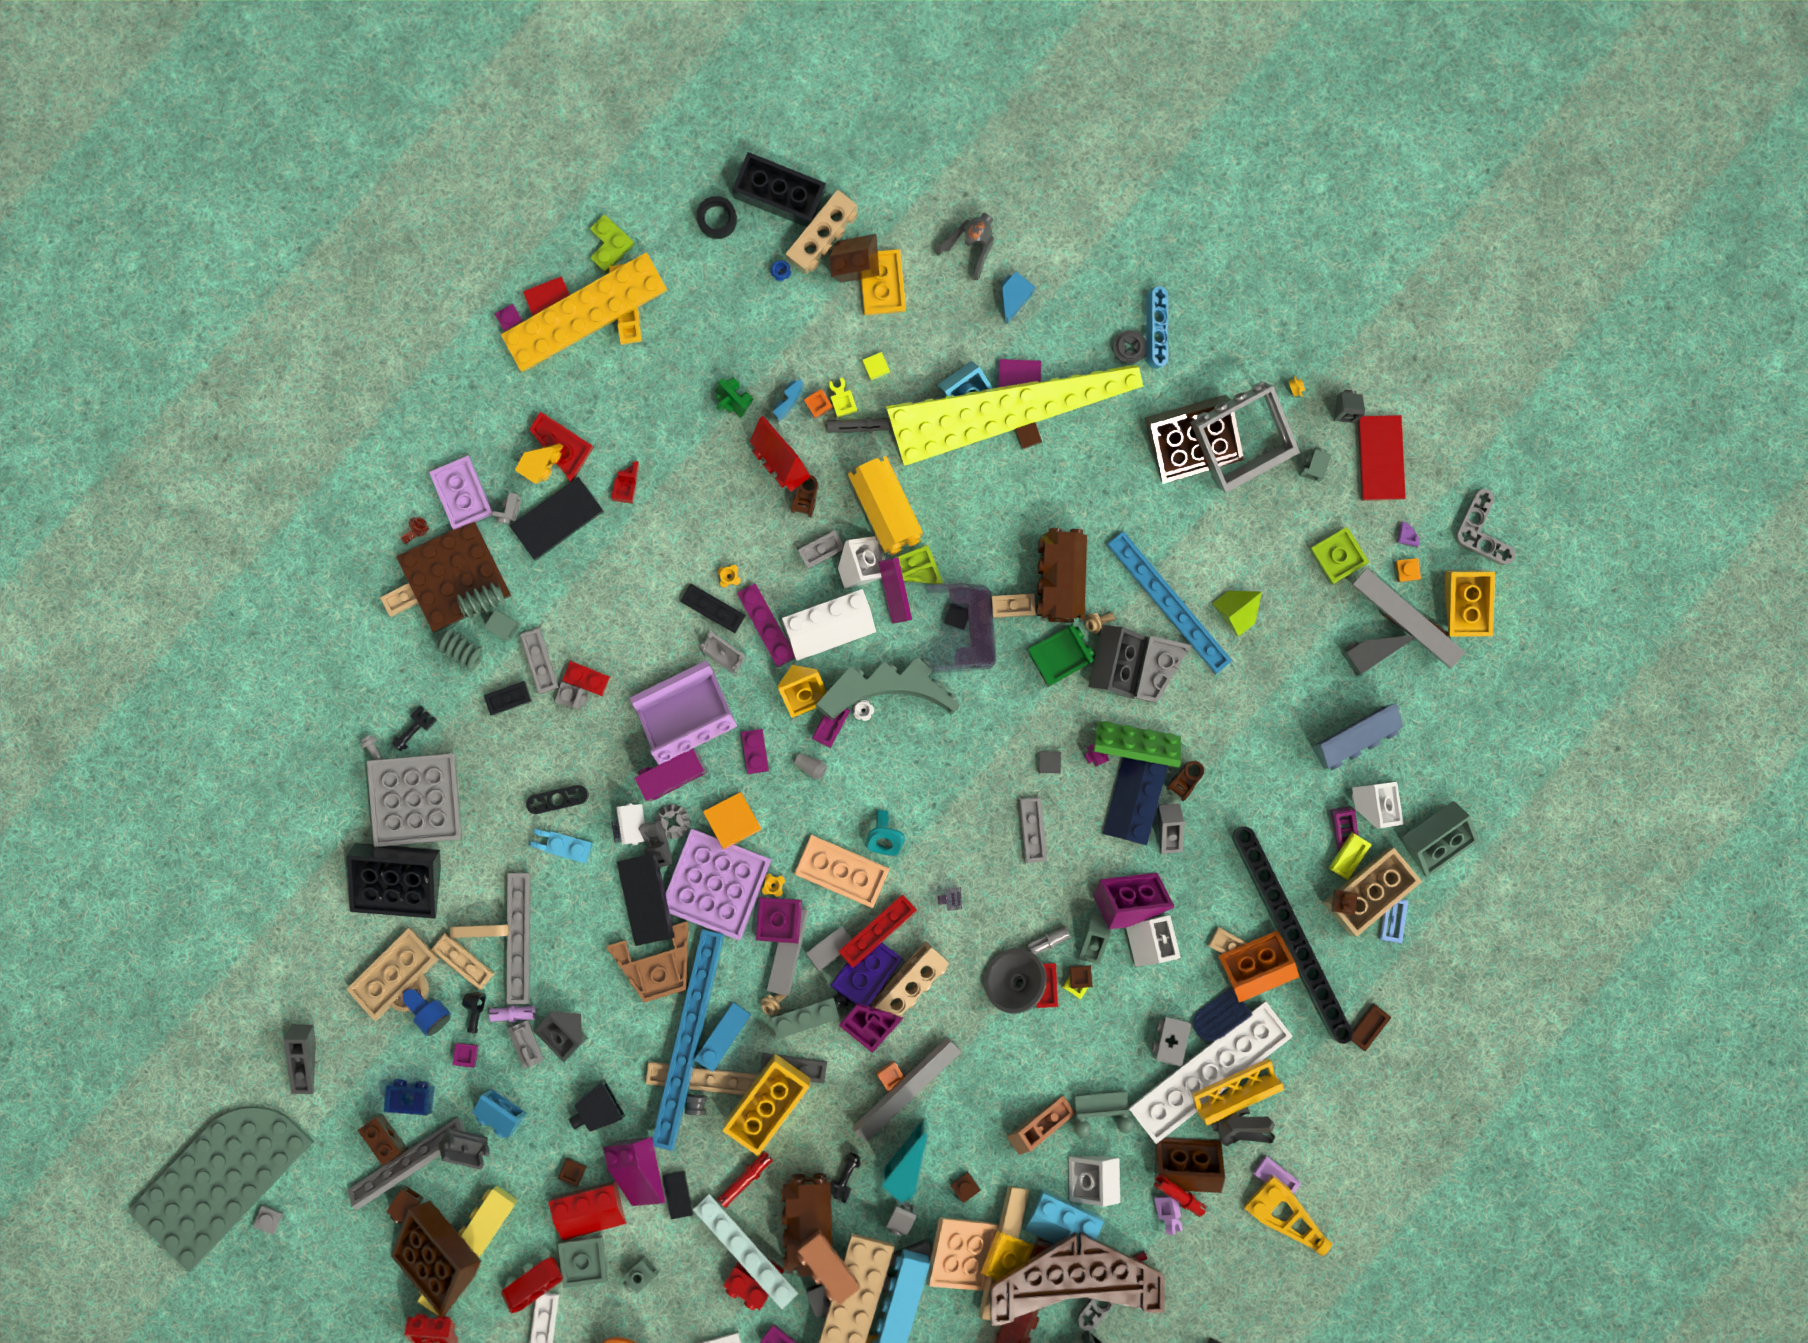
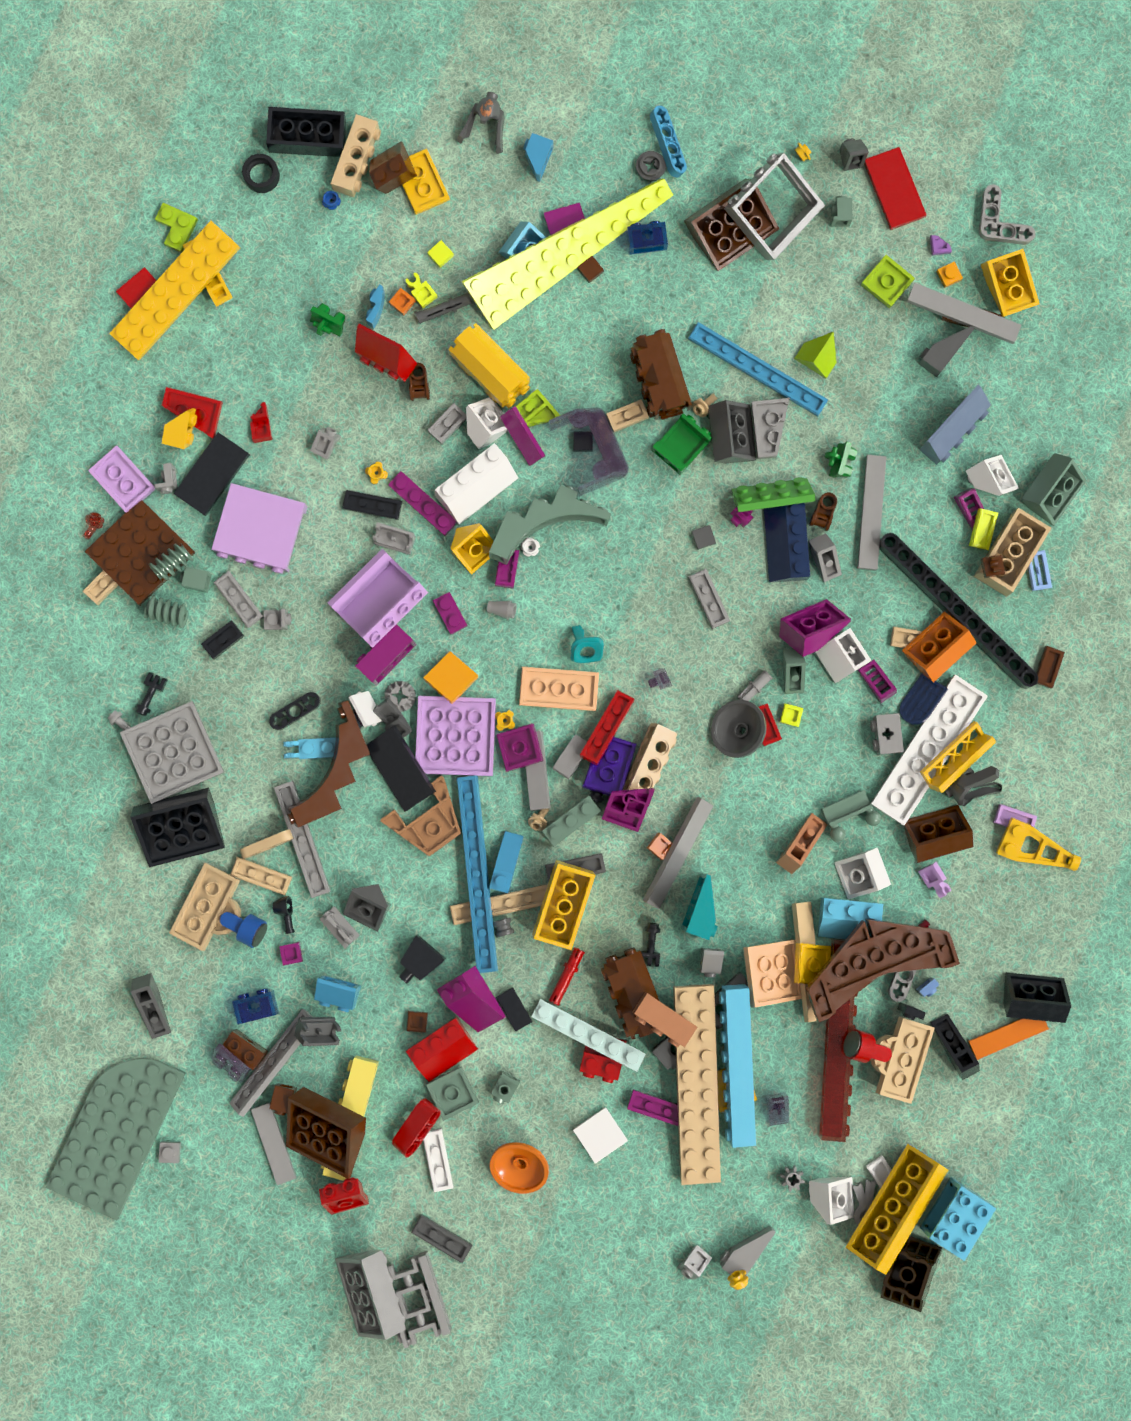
camera: 20 degrees left, 0 degrees up
(357, 1143) = (225, 1059): none -> plate
(378, 1249) = (273, 1144): none -> light grey tile
(508, 317) = (110, 317): magenta plate -> none
(512, 1013) = (319, 905): lavender pin -> none
(585, 593) = (258, 528): none -> lavender panel
(586, 678) = (284, 600): red plate -> none
(599, 860) = (348, 748): none -> reddish brown arch
(686, 525) = (325, 442): none -> light grey bracket
(965, 1187) = (756, 918): reddish brown plate -> none
(1080, 976) = (792, 707): reddish brown tile -> none
(1089, 426) = (639, 244): none -> clear blue brick
(1121, 1326) = (928, 987): none -> medium blue plate
(1185, 1199) = (945, 862): red pin -> none
(1186, 997) = (881, 697): none -> magenta slope
(1221, 728) = (838, 459): none -> green hips
(1237, 797) = (871, 512): none -> light grey tile

